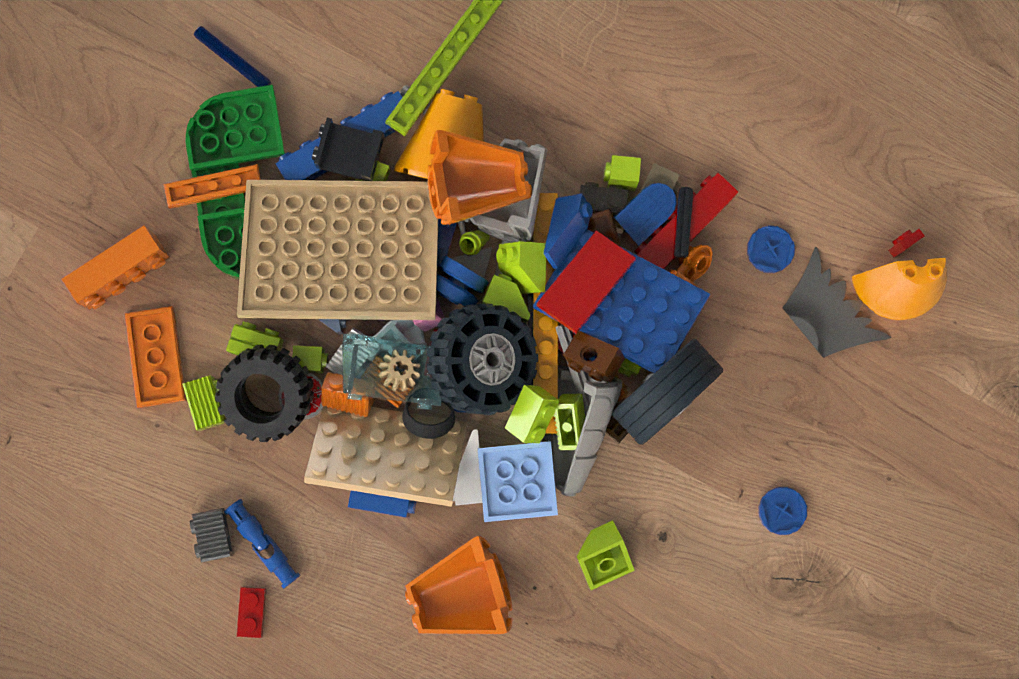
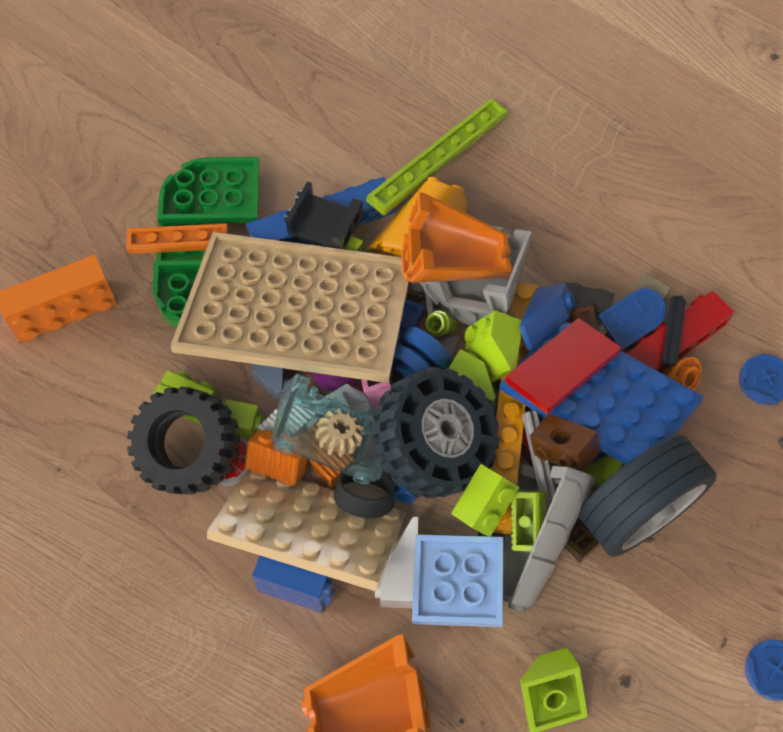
camera: 10 degrees right, 20 degrees down
(155, 357) = (75, 398): orange tile -> none
(202, 402) = (112, 449): lime brick -> none
(211, 535) = (87, 596): dark grey brick -> none
(231, 57) = (220, 132): clear blue axle -> none
(251, 612) = (111, 697): red plate -> none
(252, 530) = (136, 599): blue piece -> none
(622, 172) = (610, 274): lime brick -> none

